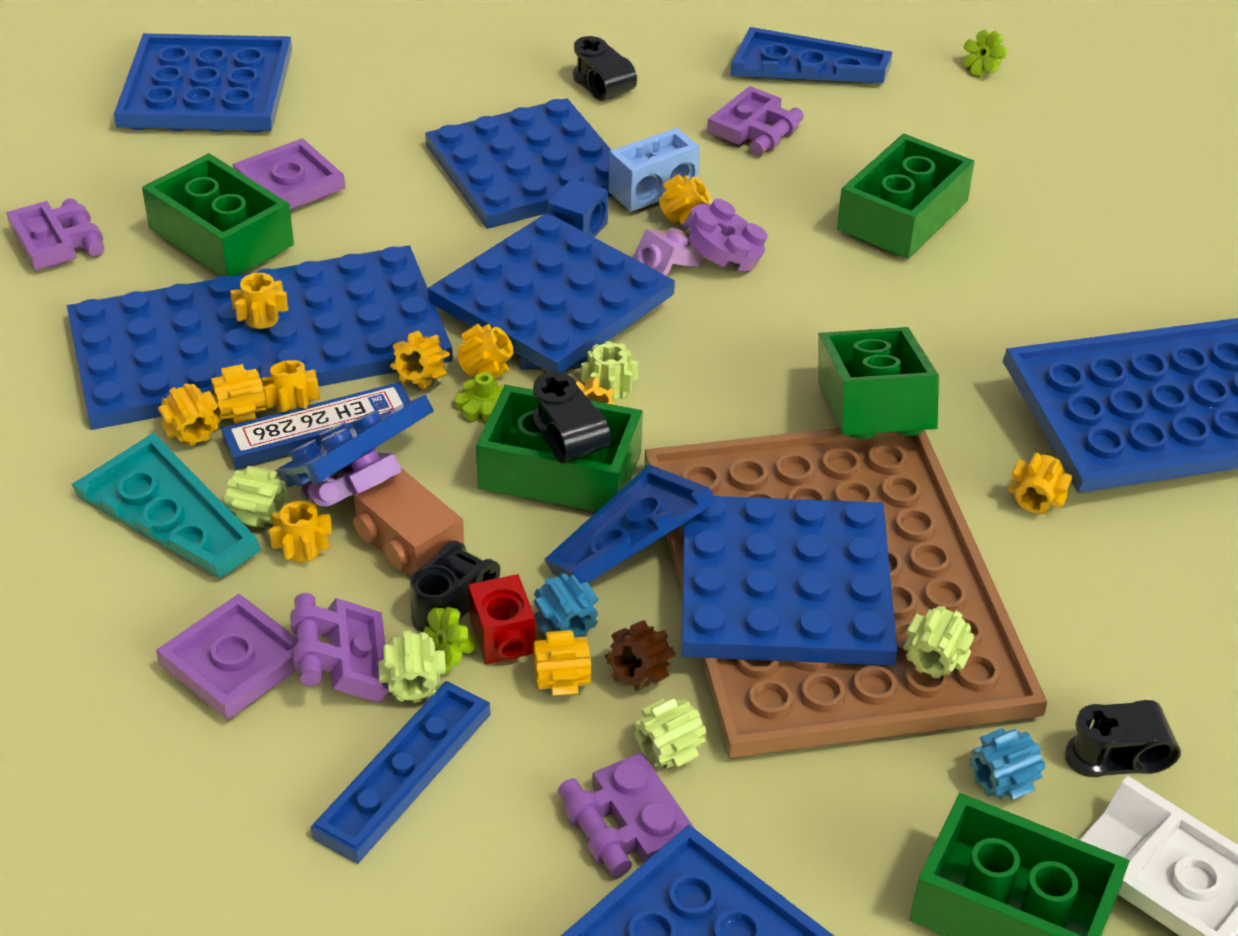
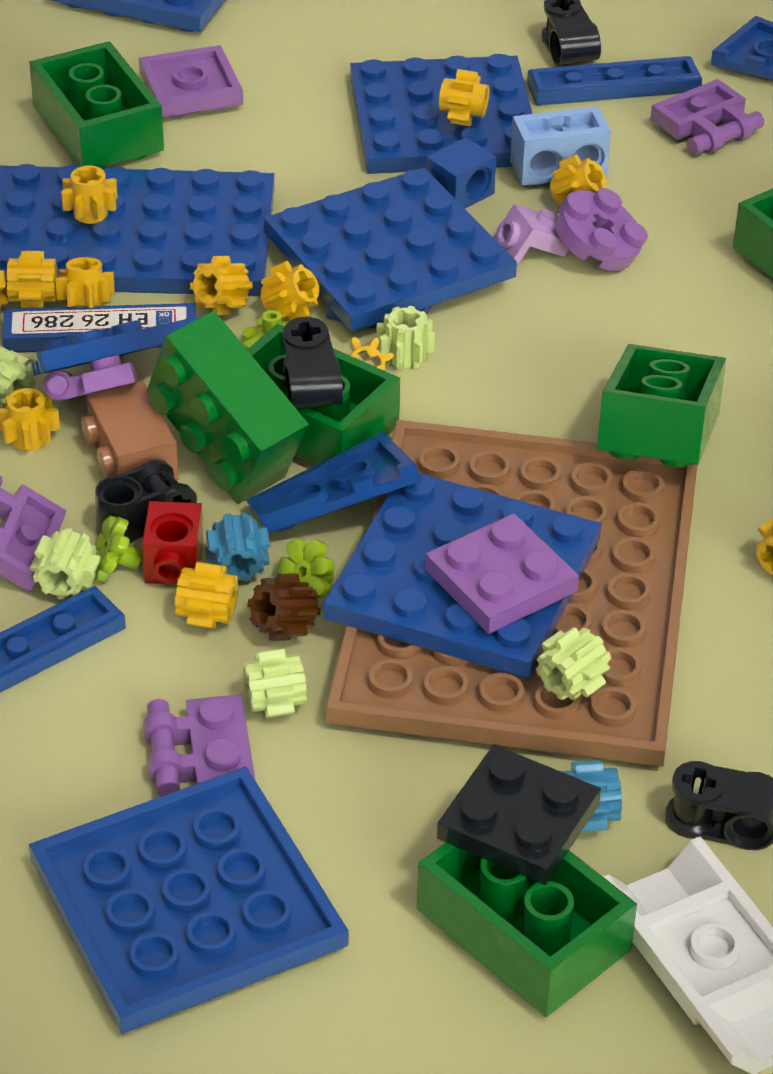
camera: 20 degrees right, 0 degrees up
(501, 475) = (226, 407): none -> green brick
(554, 142) = (464, 97): none -> yellow gear
(638, 607) = (309, 563): none -> lime plant
(657, 104) = (613, 80): none -> blue tile
(833, 572) = (501, 573): none -> medium lavender plate
(985, 804) = (519, 814): none -> black plate

